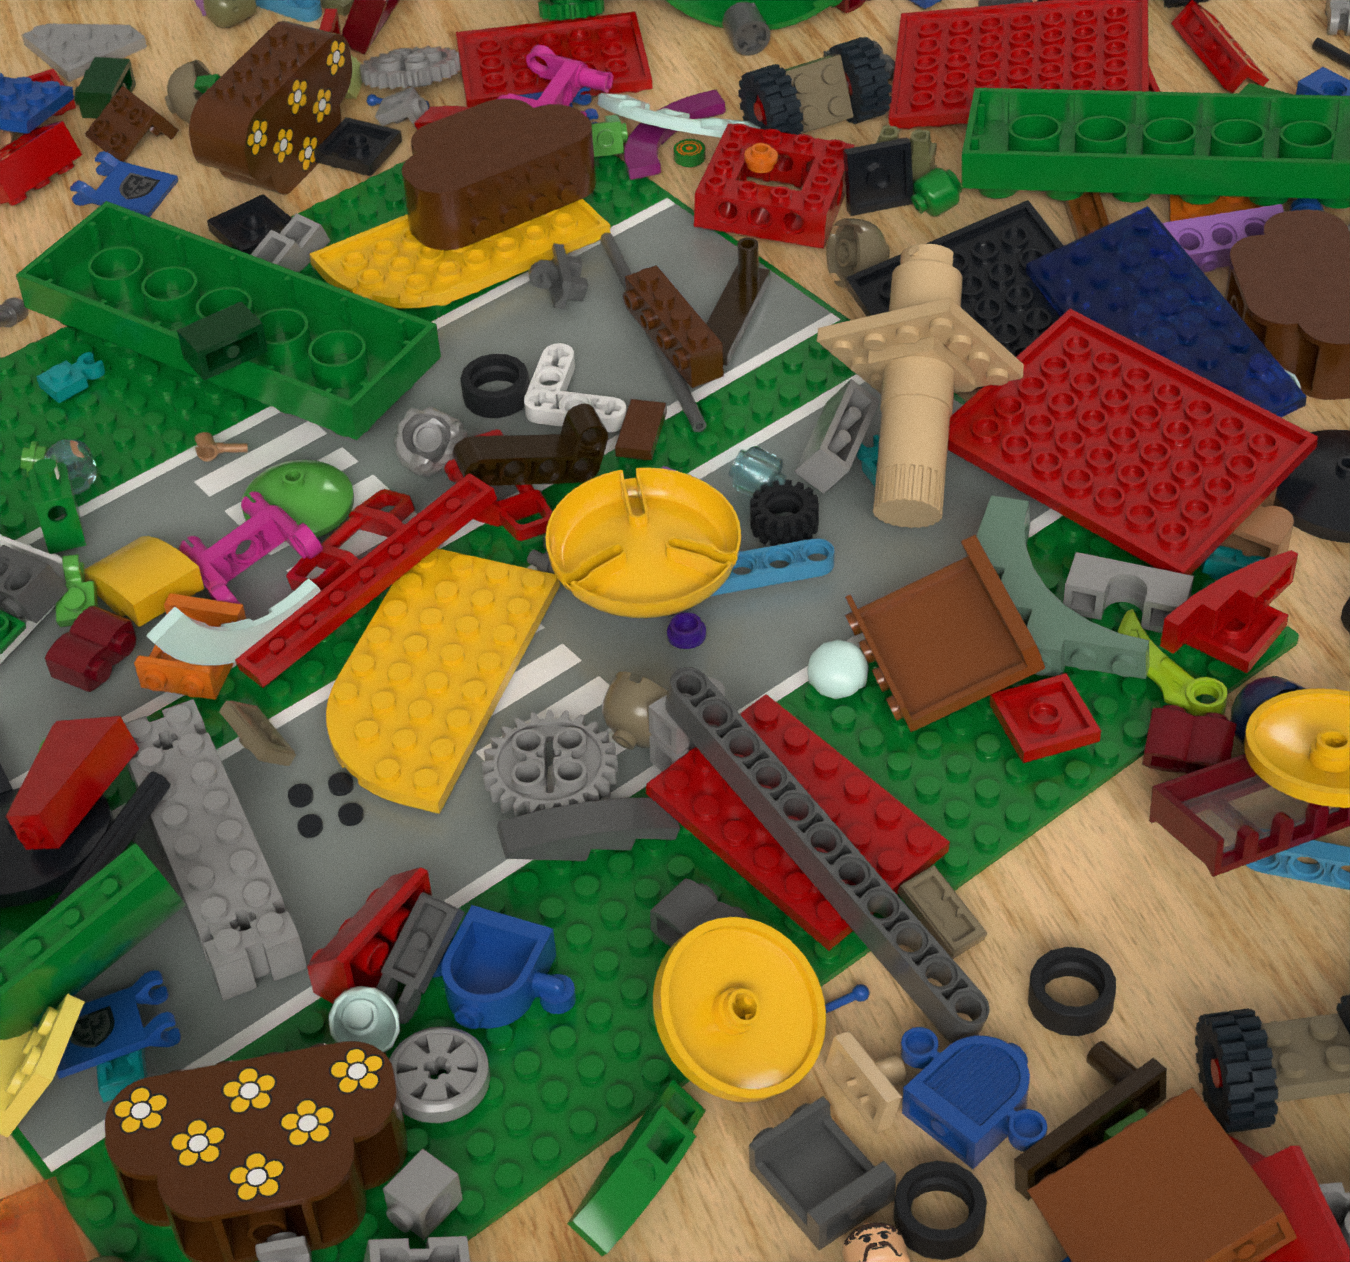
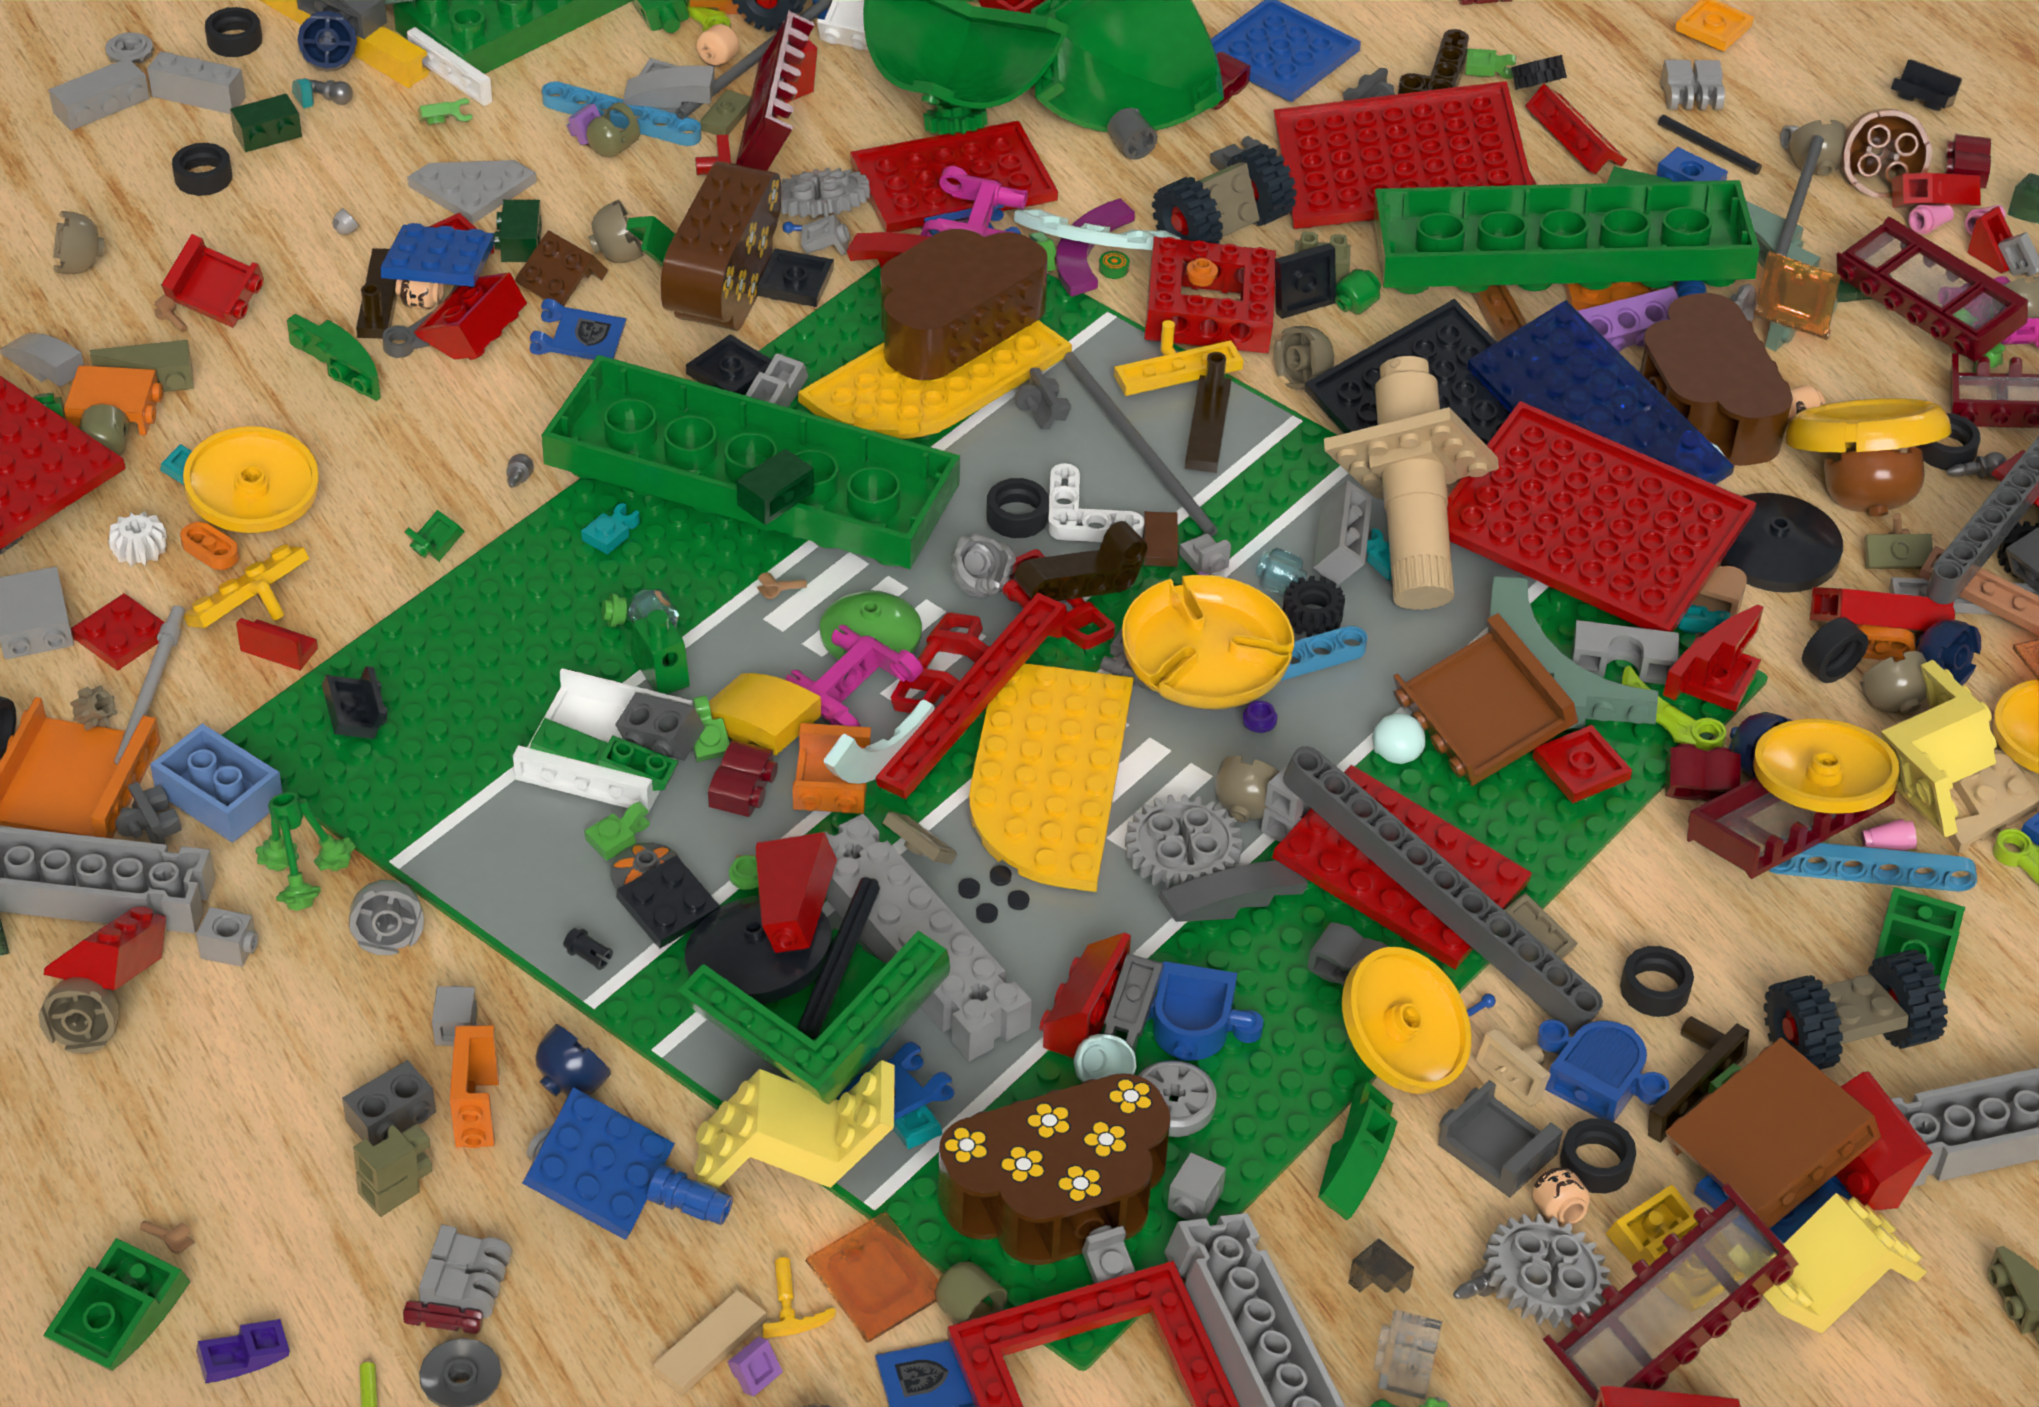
camera: 15 degrees left, 0 degrees up
(674, 326) = (1168, 440): reddish brown brick -> none
(684, 449) = (1205, 554): none -> light grey bracket
(714, 253) = (1173, 366): none -> yellow plate

